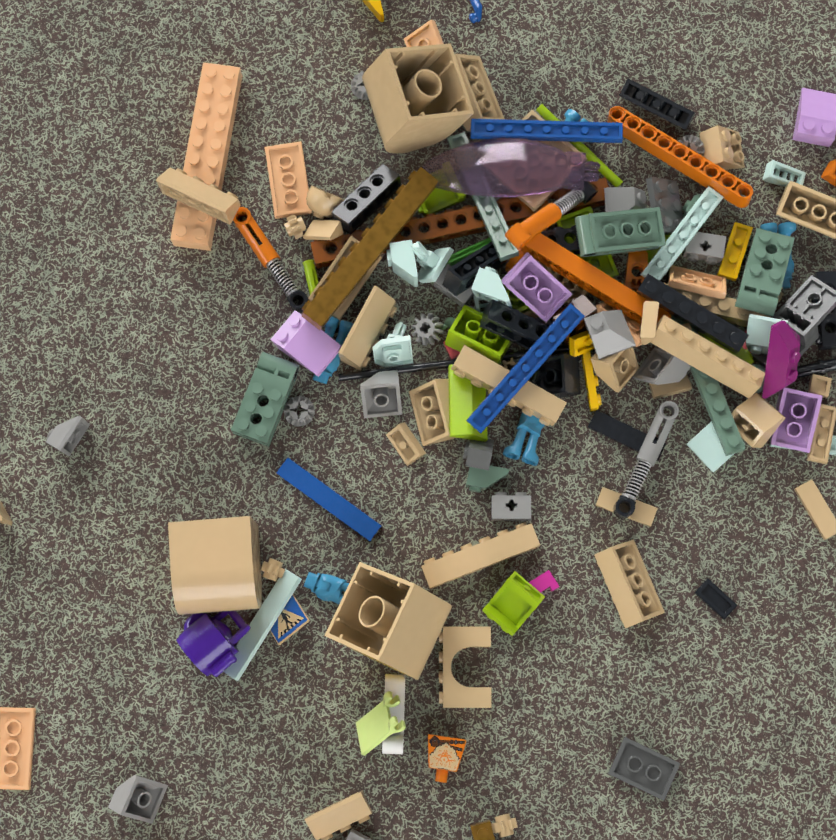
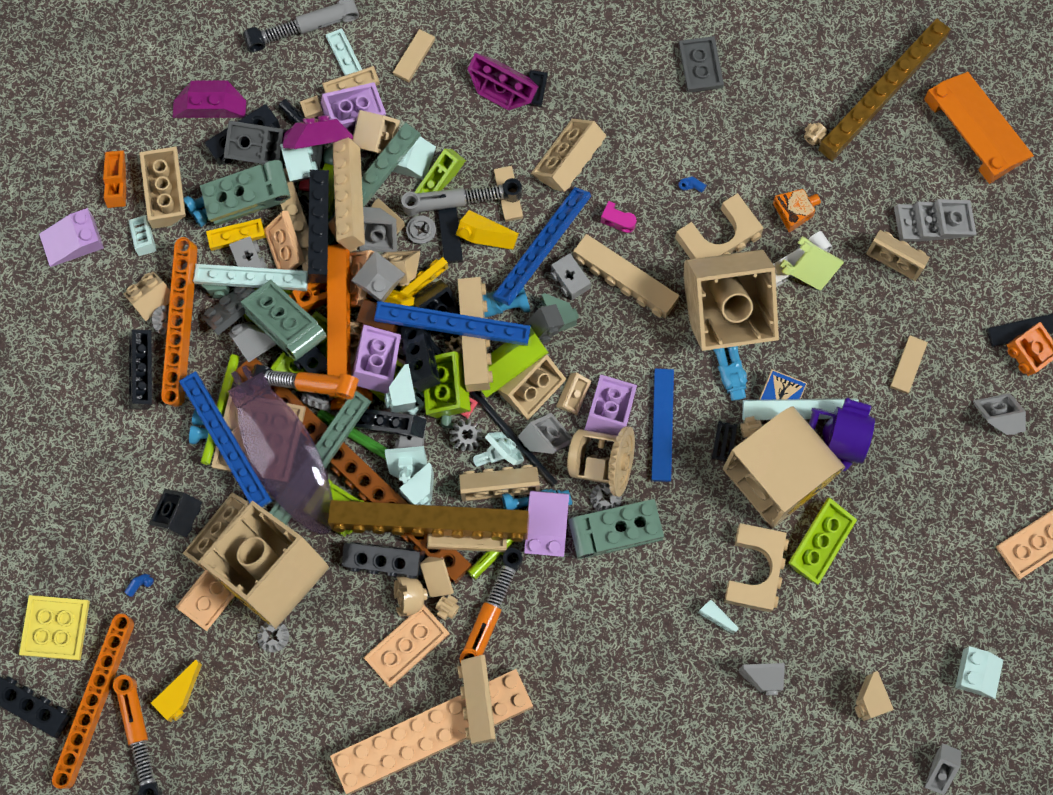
camera: 125 degrees left, 5 degrees down
(131, 481) = (771, 545): none -> tan arch
(139, 562) = (822, 541): none -> lime slope
(142, 432) = (717, 616): none -> light aqua slope
(237, 751) = (908, 364): none -> tan tile
(267, 530) = (727, 426): none -> black tile
(313, 424) = (607, 470): none -> tan piece
(372, 465) = (610, 406): none -> lavender slope
(513, 603) = (646, 226): lime panel -> none
(514, 66) = (176, 512): none -> black slope
(532, 676) = (691, 183): none -> blue arm
(555, 500) = (541, 246): none -> blue tile
(603, 457) = (485, 231): none -> yellow slope
(641, 400) = (419, 222): none -> light grey gear
(649, 321) = (348, 249): tan slope -> none
(682, 458) = (441, 172): none -> lime slope
(739, 568) = (501, 83): none -> magenta wedge

